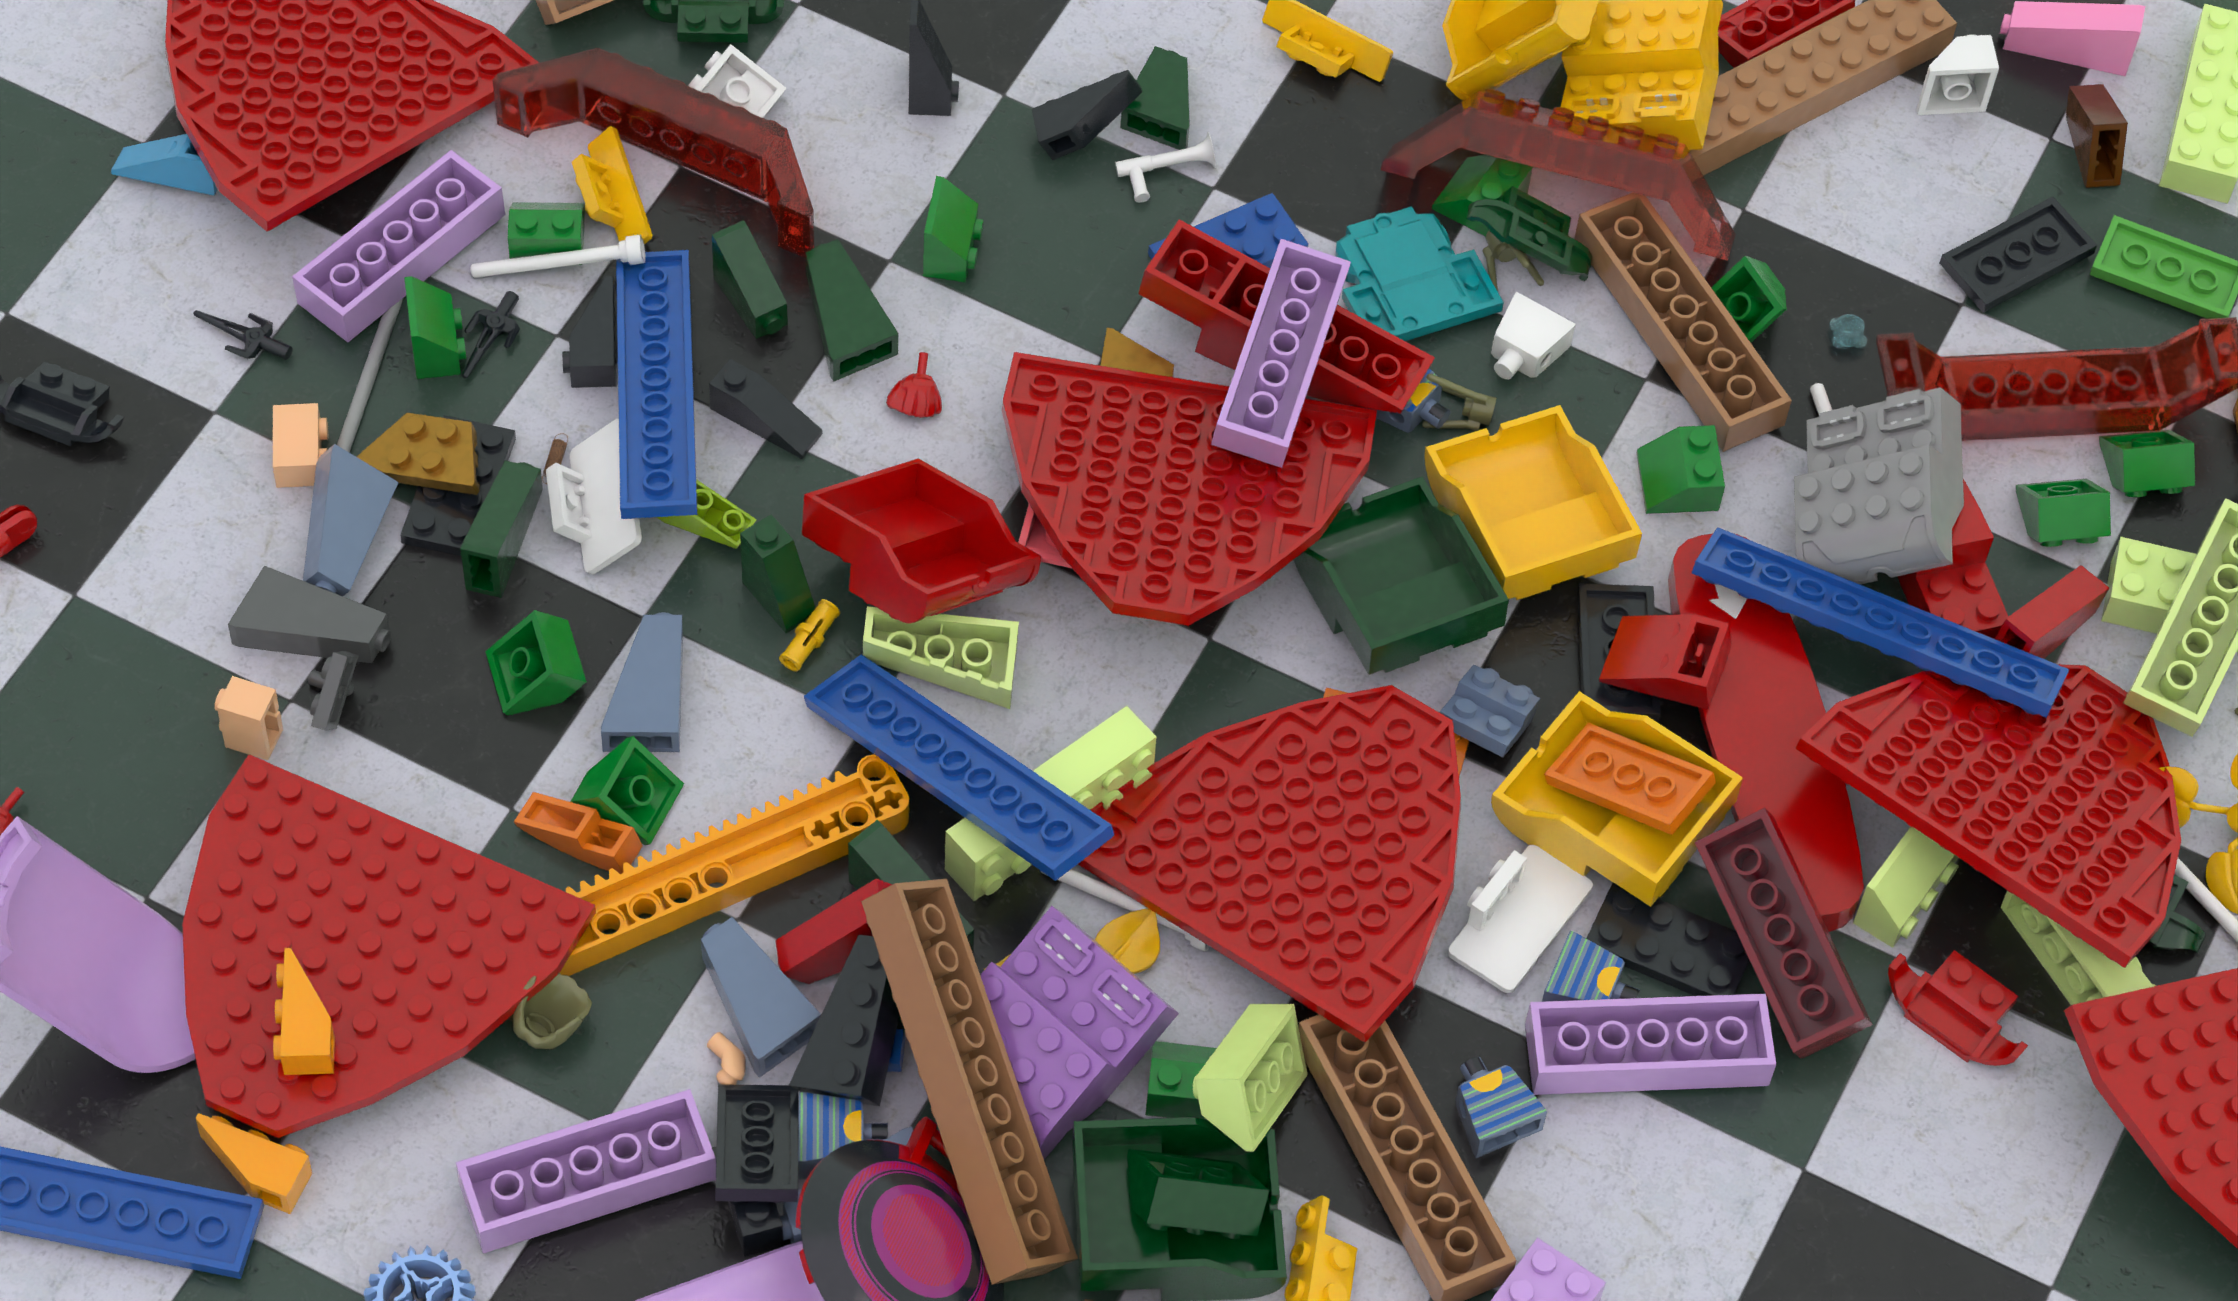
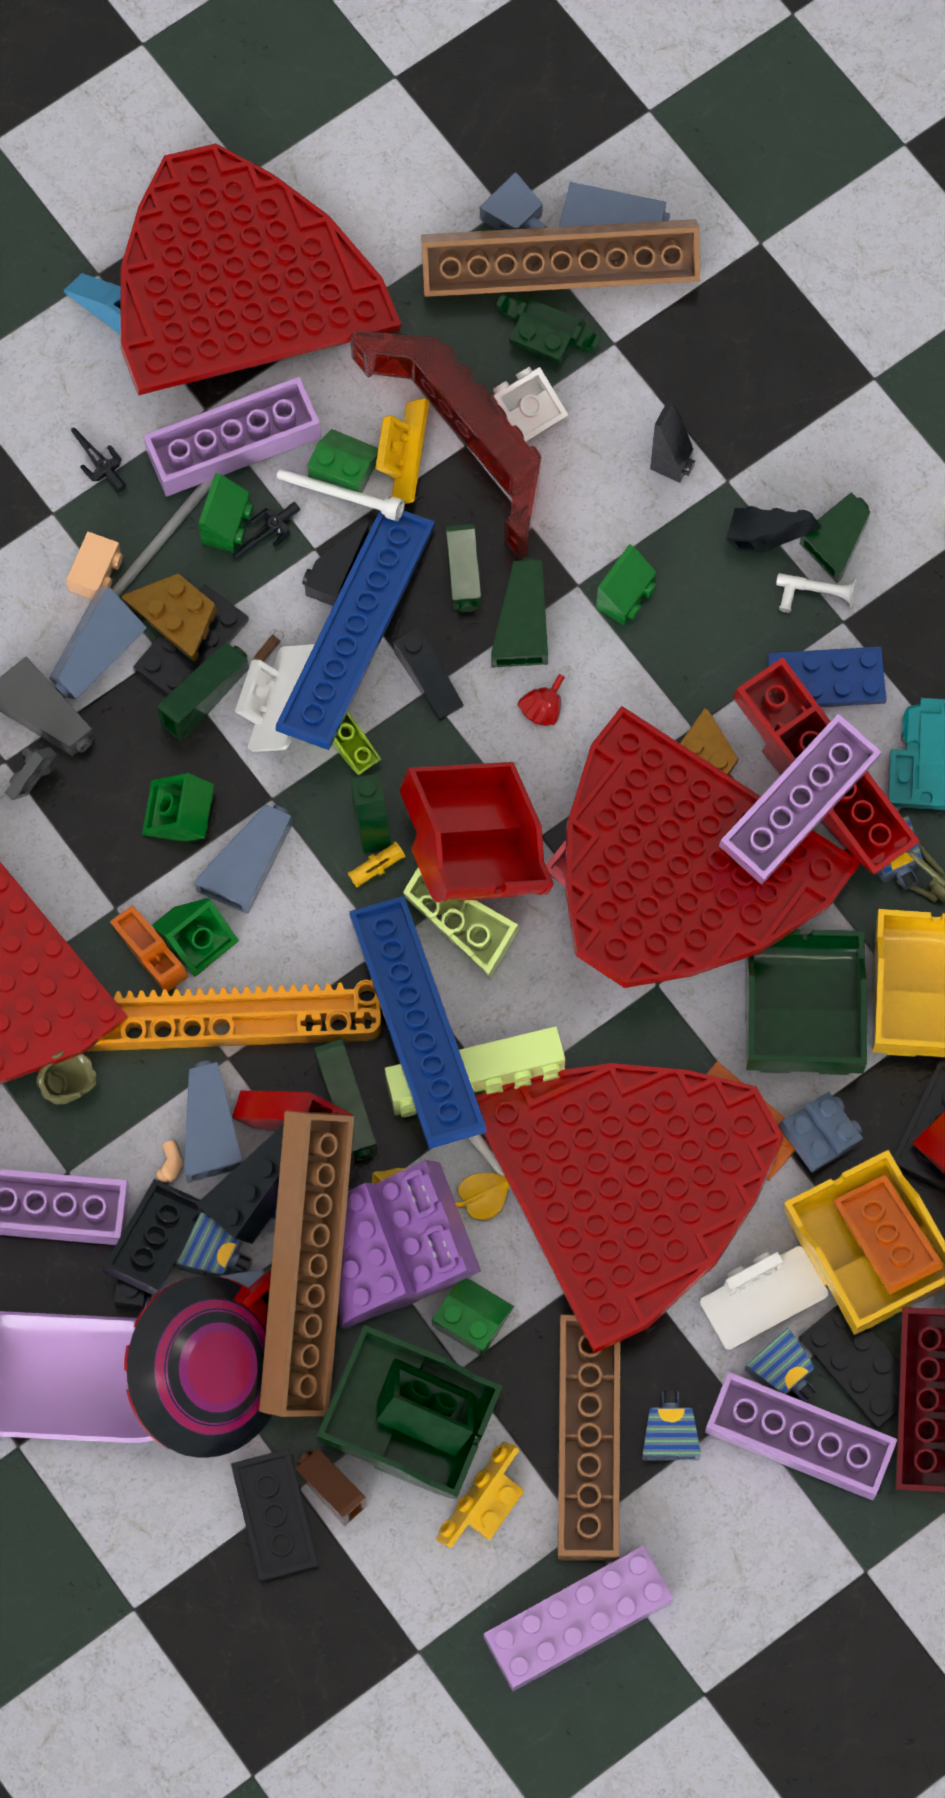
camera: 30 degrees right, 15 degrees up
(1252, 1073) = (506, 1340): yellowish green slope -> none

